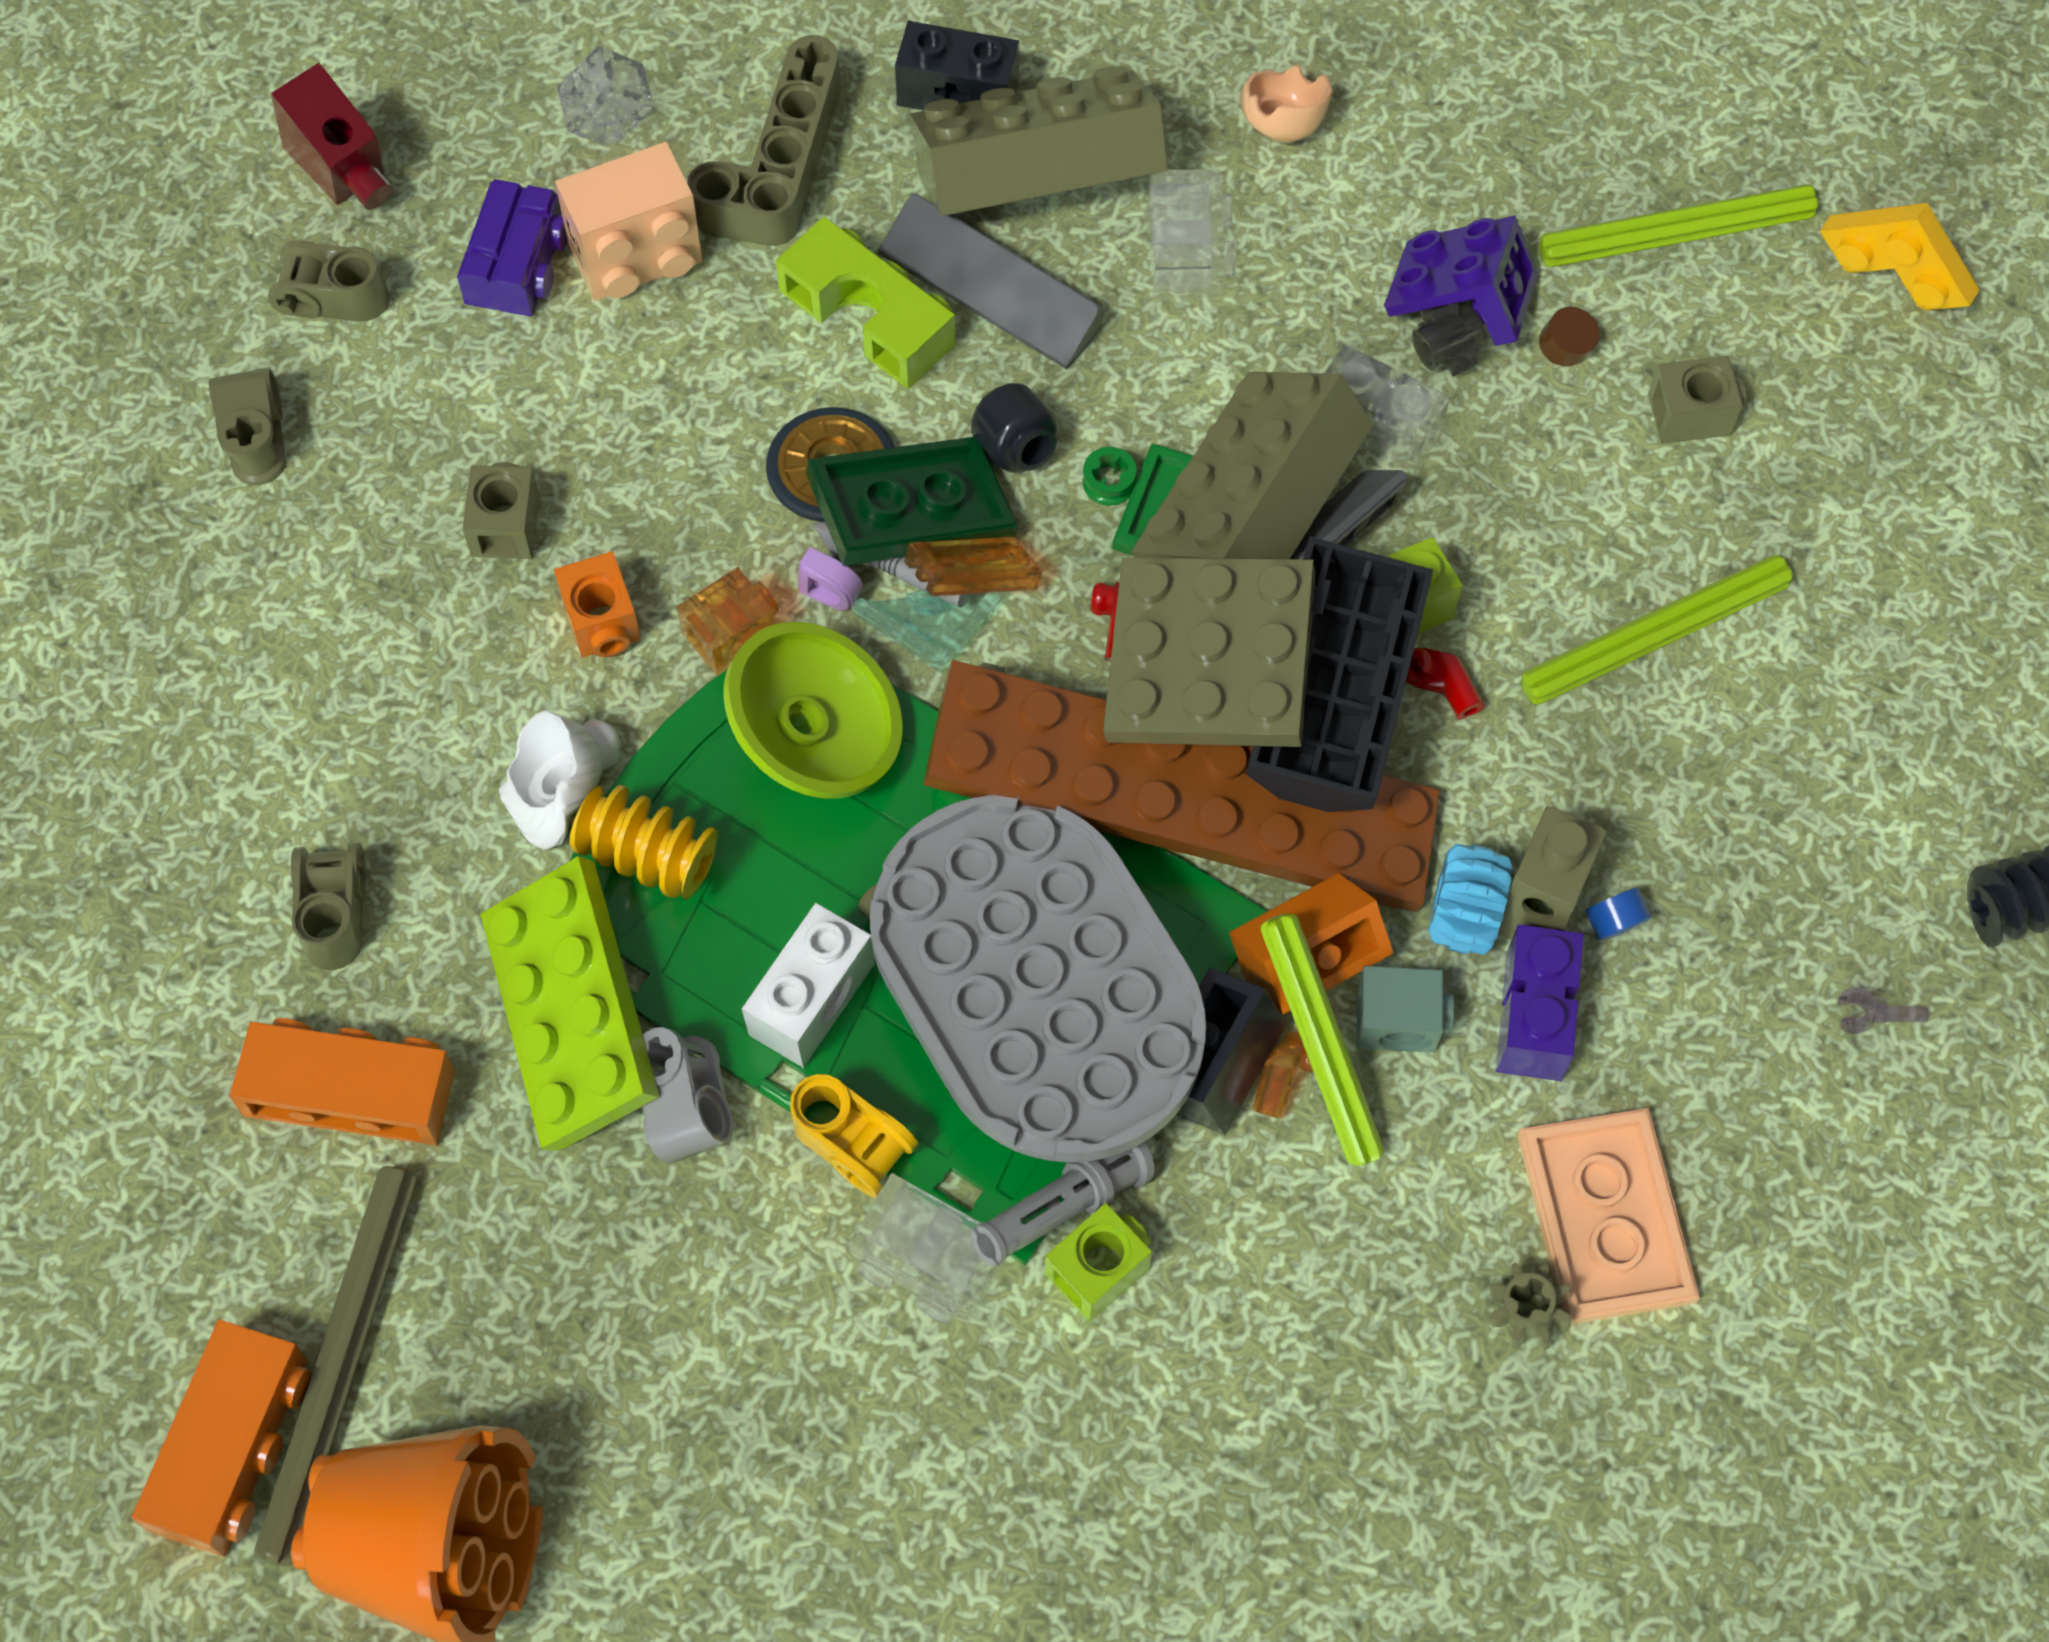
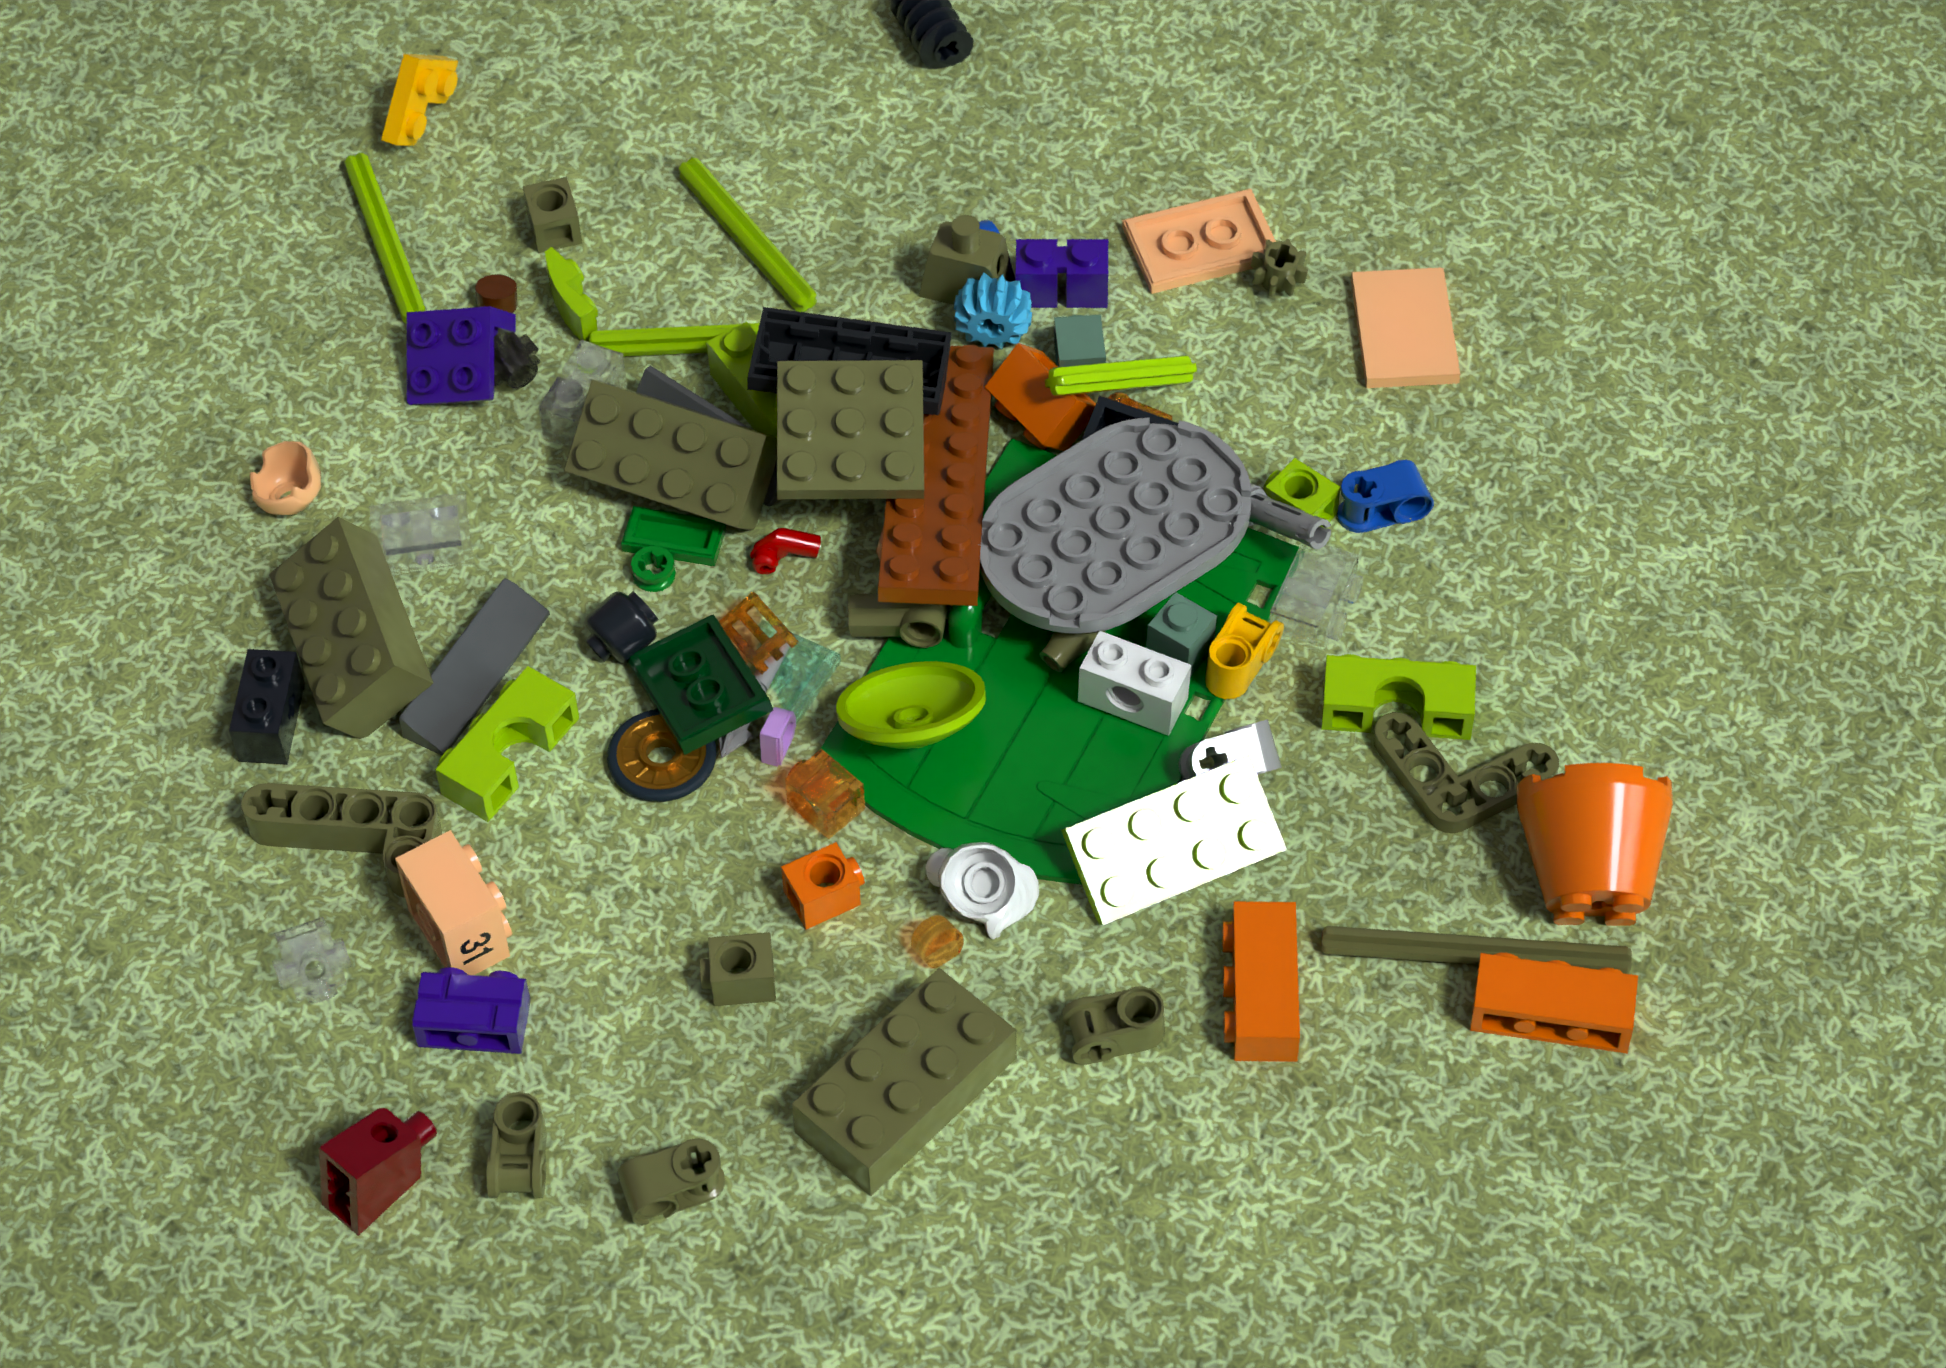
camera: 95 degrees left, 10 degrees down
(305, 661) = (904, 1081): none -> olive brick
(497, 724) = (937, 941): none -> clear orange piece
(599, 1376) = (1447, 785): none -> olive beam
(643, 844) = (1035, 801): yellow piece -> none
(732, 1390) = (1437, 691): none -> lime arch
(873, 1054) = (1182, 631): none -> sand green brick
(1091, 1389) = (1388, 492): none -> blue piece
(1414, 1478) = (1405, 327): none -> light nougat tile
(1477, 537) = (661, 340): none -> lime axle
(1564, 403) = (567, 292): none -> lime slope
(1876, 1012) = (1028, 109): hand -> none

